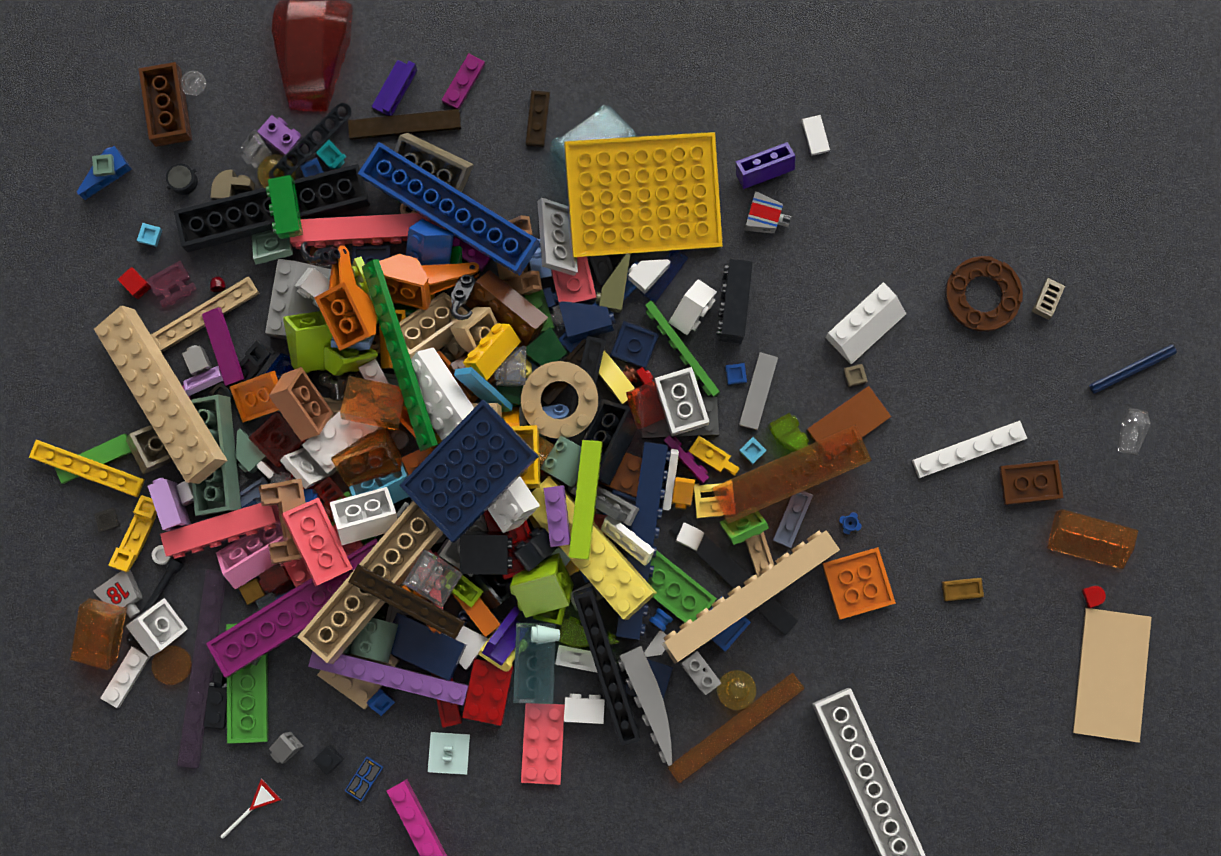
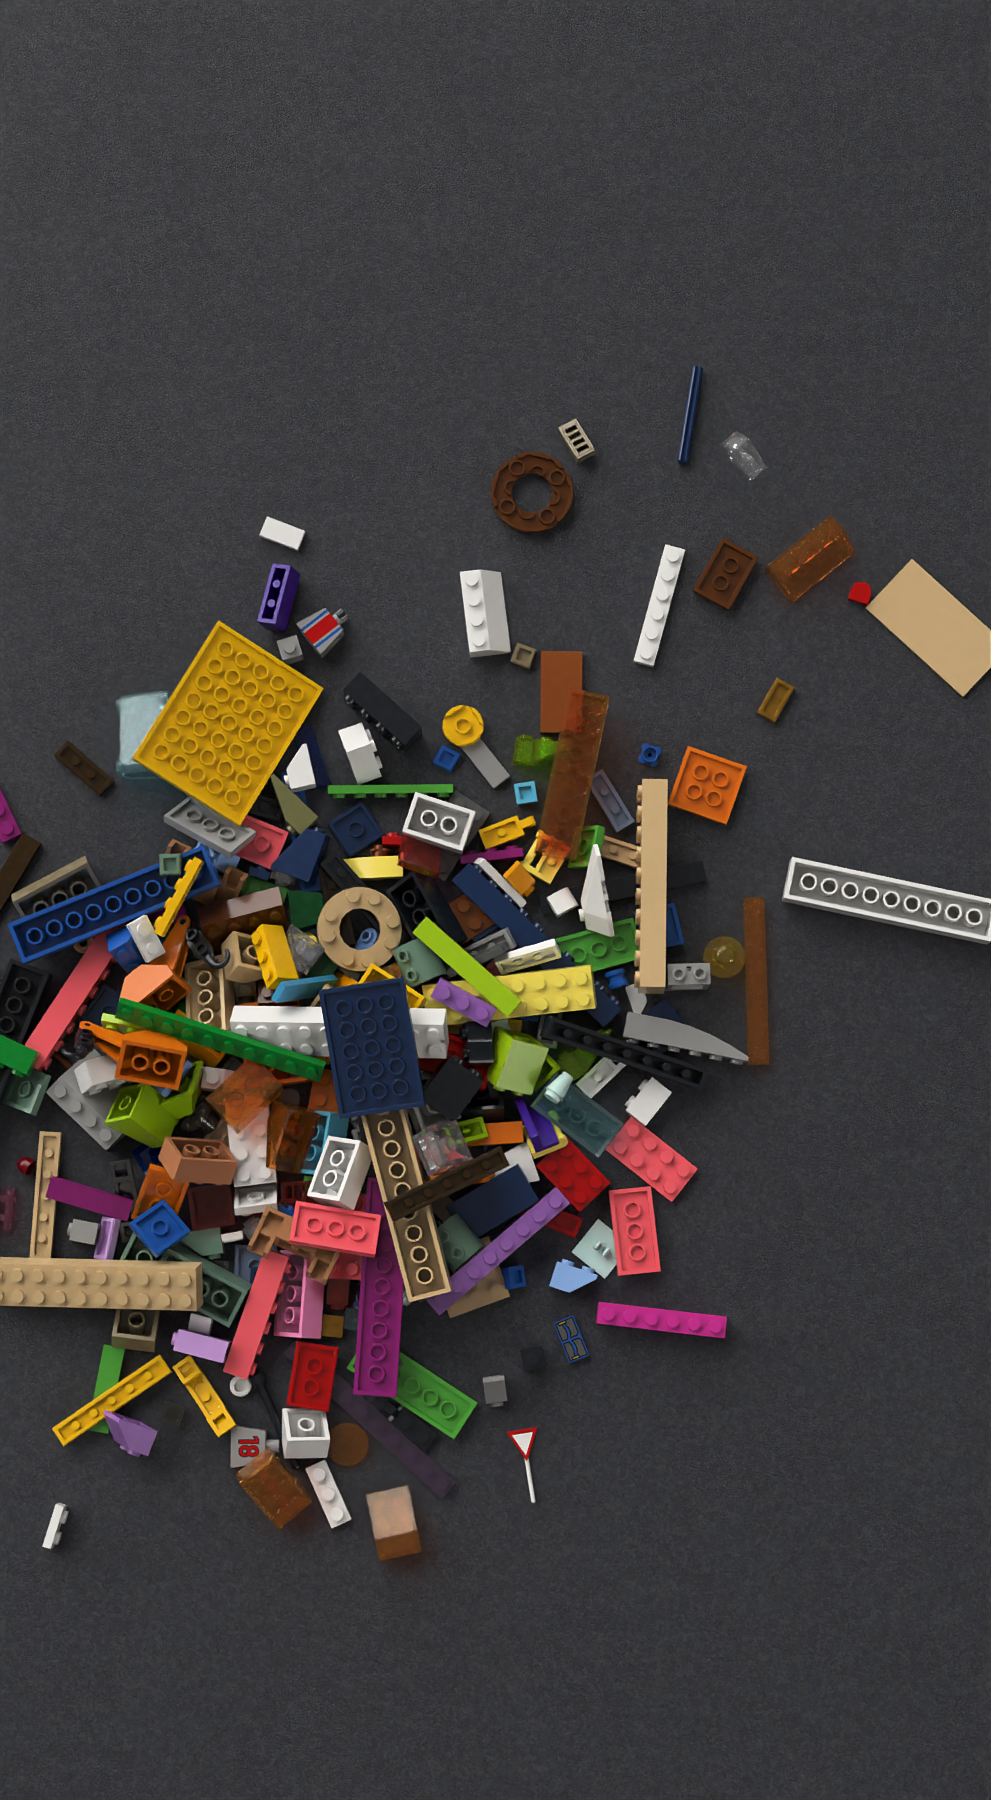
camera: 55 degrees left, 0 degrees up
(70, 500) = (131, 1434): none -> medium lavender slope
(134, 743) = (394, 1523): none -> clear orange slope
(202, 603) = (312, 1376): none -> red tile
(231, 411) = (159, 1228): none -> blue plate
(408, 745) = (571, 1278): none -> light blue slope
(437, 247) = (145, 938): none -> white plate
(476, 248) = (182, 888): none -> yellow plate
(478, 769) = (634, 1231): none -> coral plate
(504, 225) = (170, 864): none -> sand green tile
(708, 559) = (594, 898): none -> white wedge
(732, 202) = (290, 650): none -> light grey brick
(769, 368) = (462, 726): none -> yellow tile

